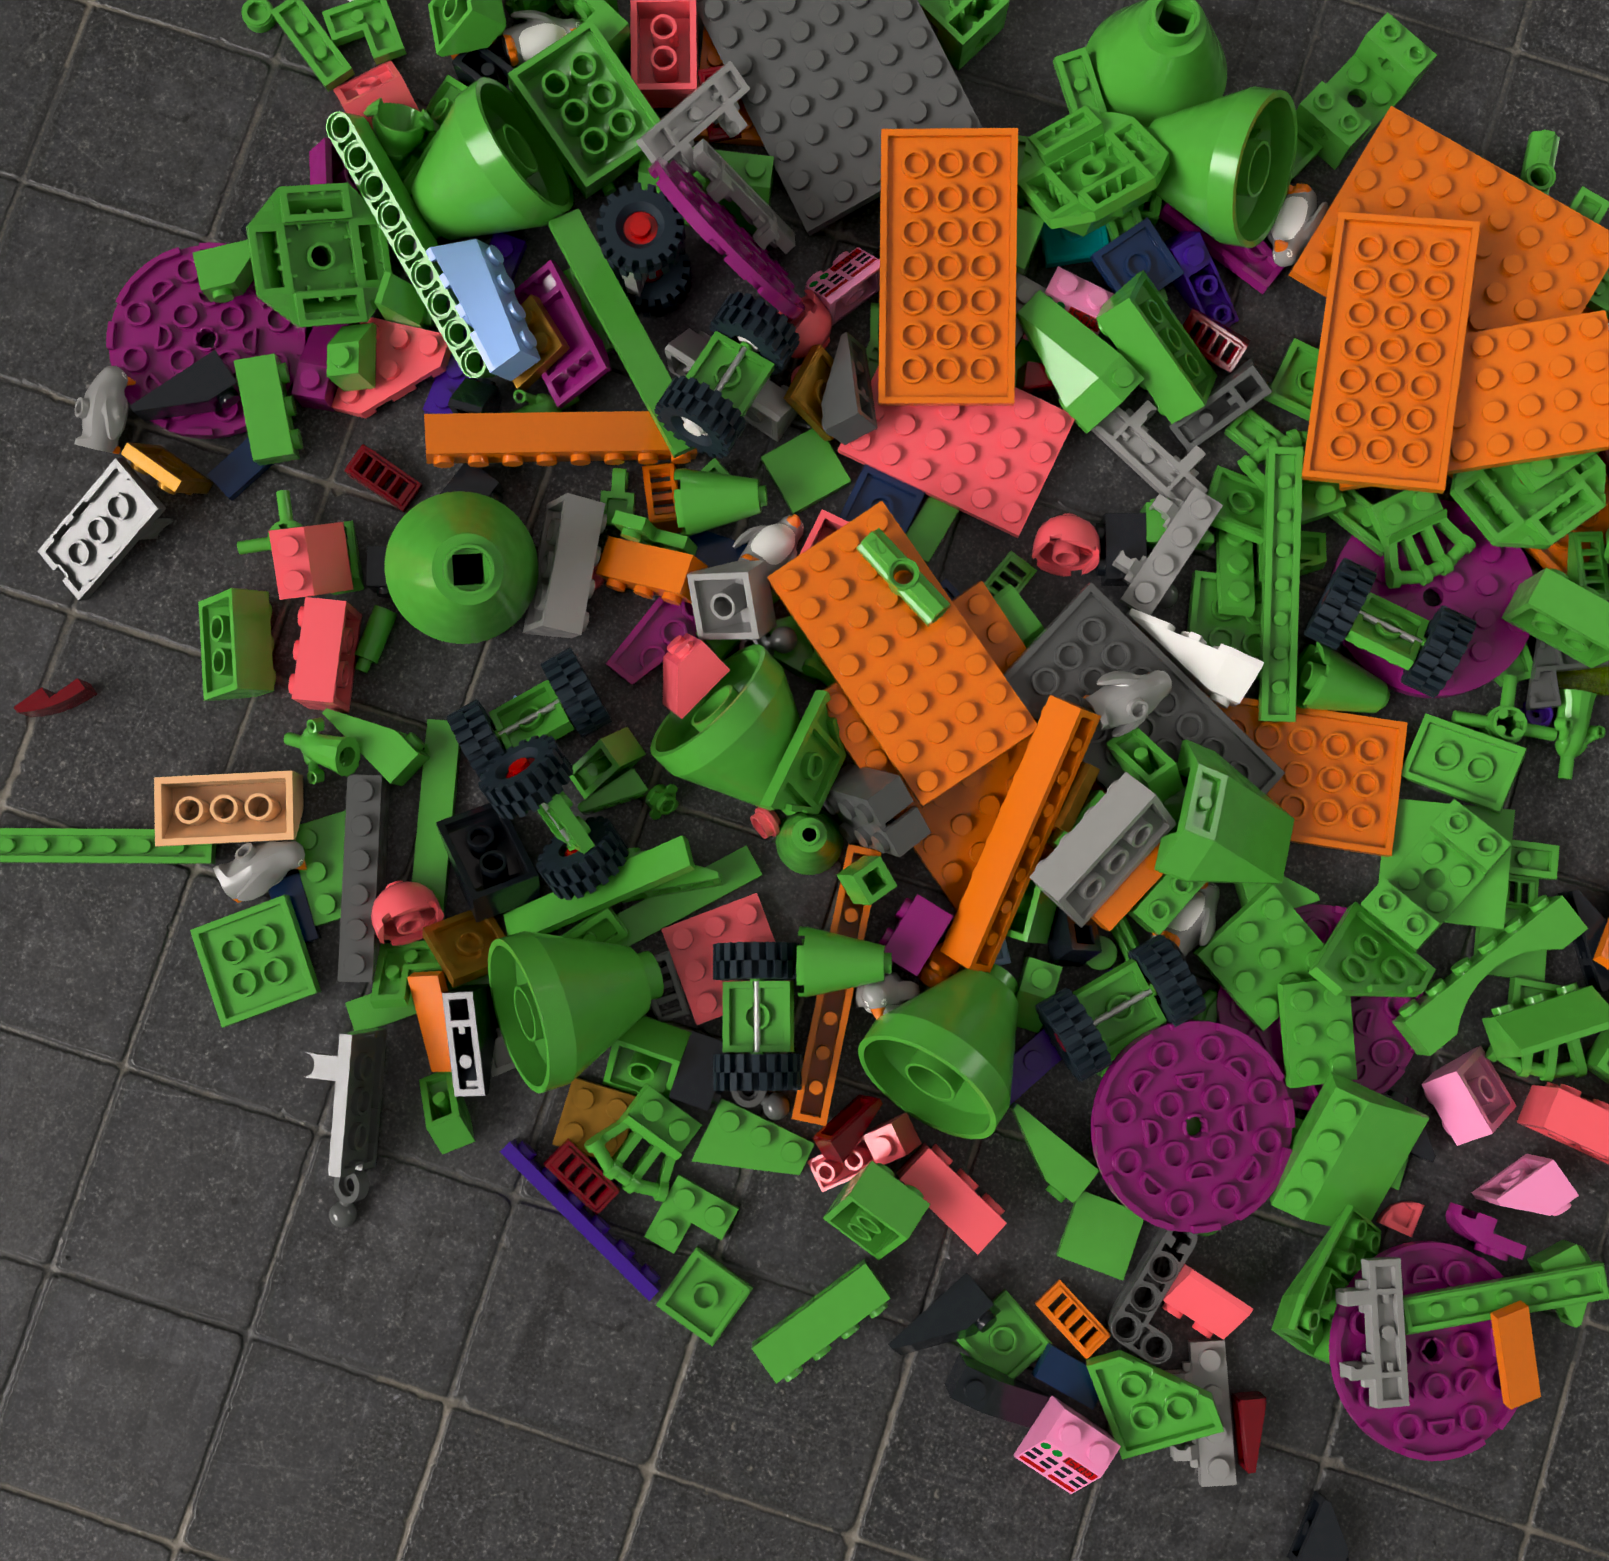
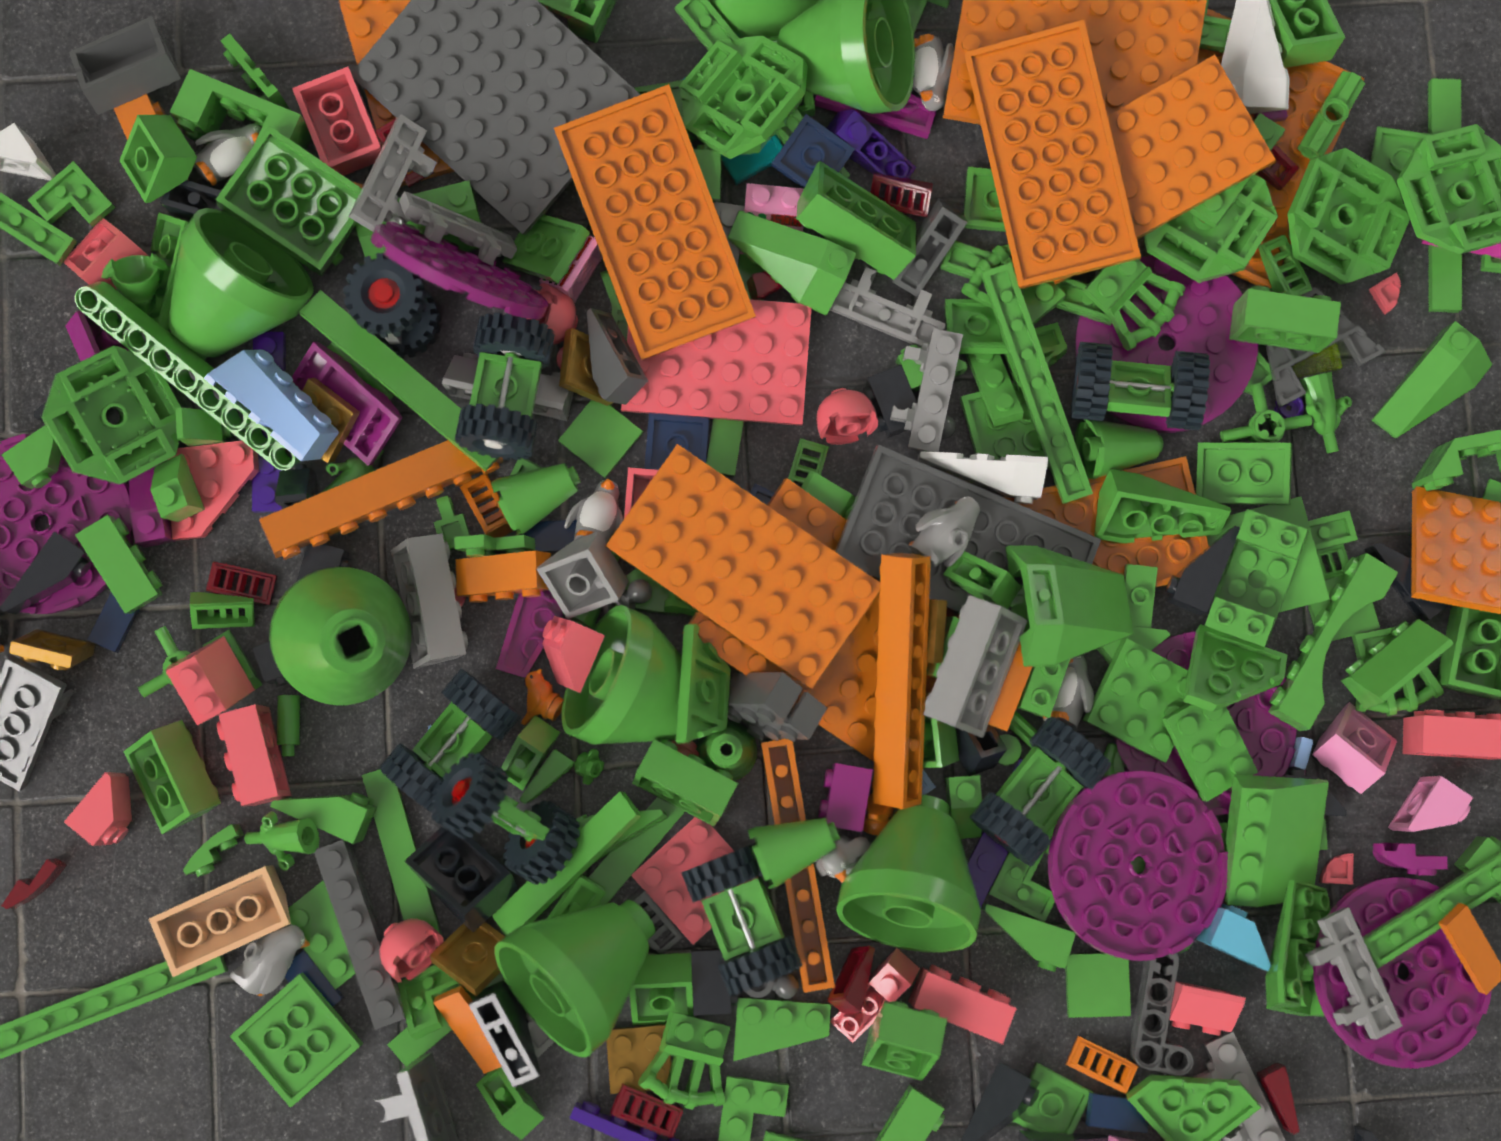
camera: 25 degrees left, 0 degrees up
(153, 651) = (104, 811): none -> coral slope
(240, 738) = (207, 854): none -> bright green slope
(336, 502) = (210, 619): none -> bright green slope
(640, 712) = (541, 698): none -> orange animal
(753, 853) = (685, 781): none -> bright green brick
(827, 255) = (548, 248): none -> bright green plate
(866, 880) = (789, 768): bright green brick -> none
(917, 594) = (703, 493): bright green piece -> none
(1055, 1102) = (1015, 888): none -> bright green plate
(1267, 1243) = (1236, 937): none -> medium azure slope
(1305, 844) = (1140, 589): none -> bright green plate
(1342, 757) = (1144, 507): none -> bright green wedge
(1368, 858) = (1198, 581): none -> black slope
(1410, 1079) = (1302, 752): none -> light blue tile

